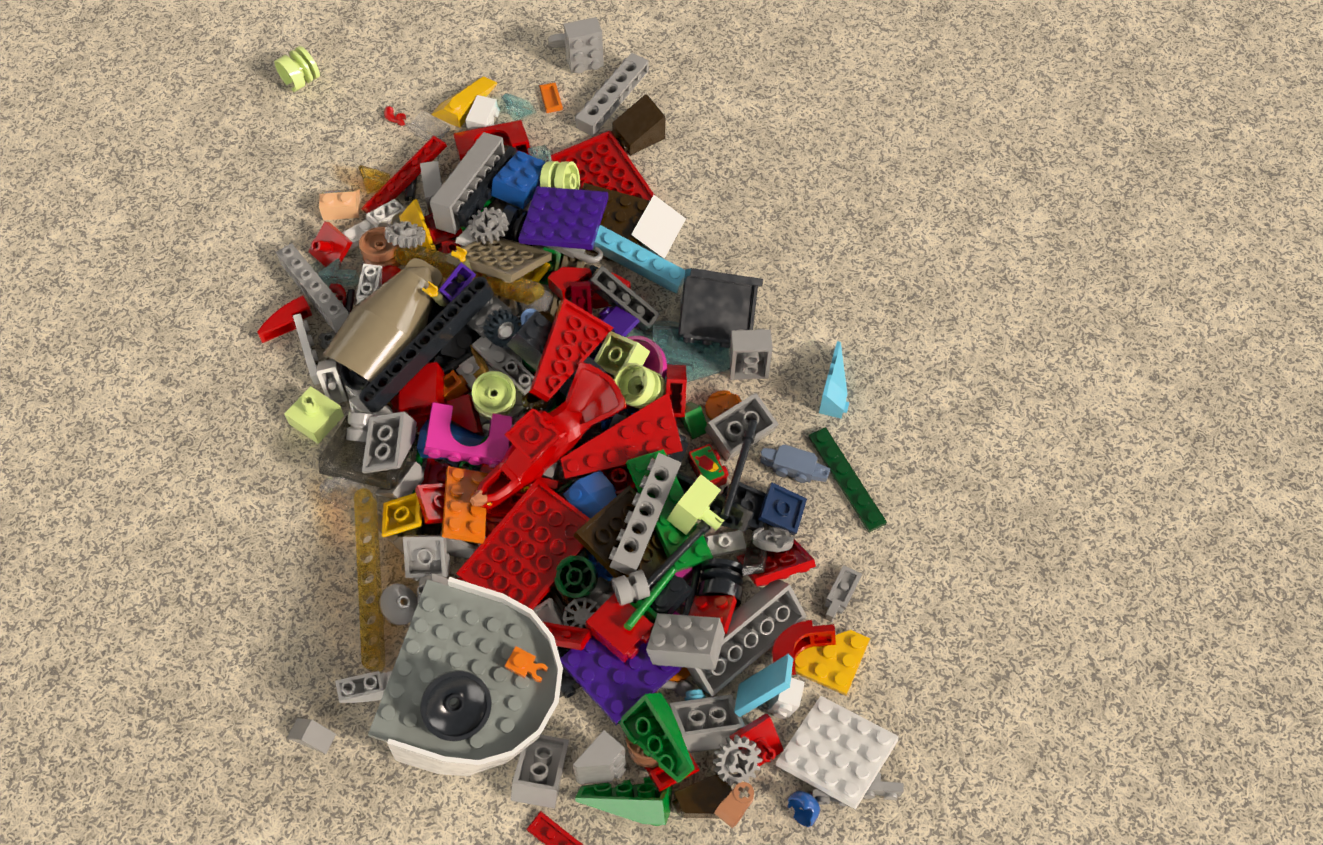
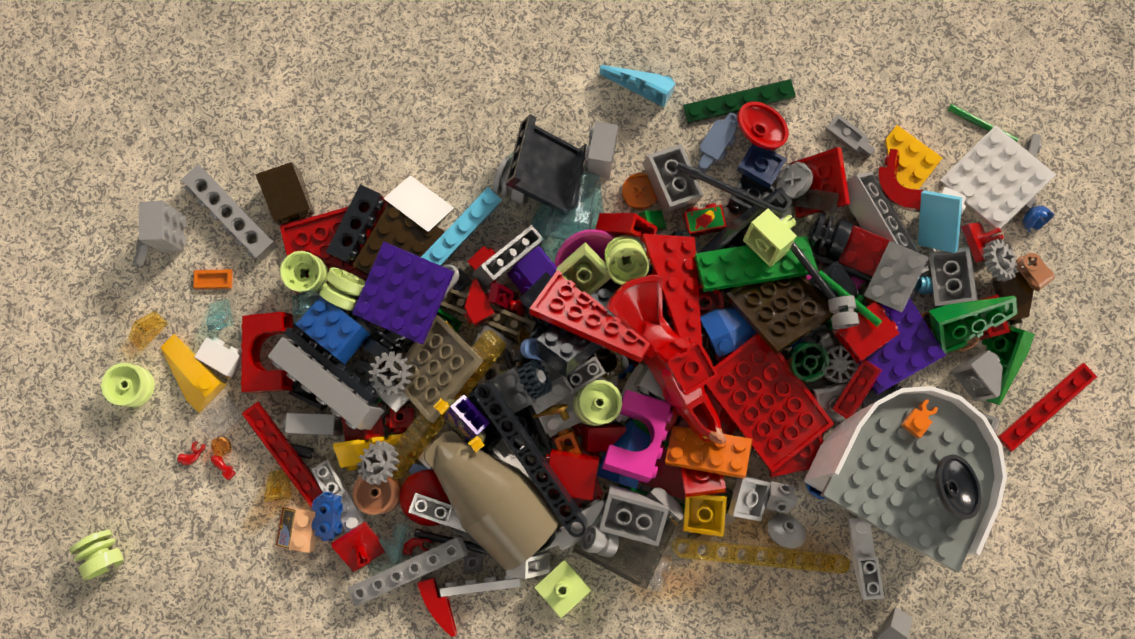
camera: 70 degrees left, 20 degrees up
(353, 214) = (327, 516): none -> blue brick
(389, 134) = (227, 471): none -> red arm
(404, 133) = (221, 446): none -> clear orange tile
(444, 58) = (127, 385): none -> yellowish green wheel
(496, 62) = (146, 329): none -> clear yellow slope
(568, 144) = (294, 269): none -> yellowish green wheel
(624, 179) = (345, 231): none -> black brick
(629, 561) = (780, 282): light grey brick -> none
(832, 496) = (762, 125): none -> red dish
(901, 732) = (975, 120): none -> green bar

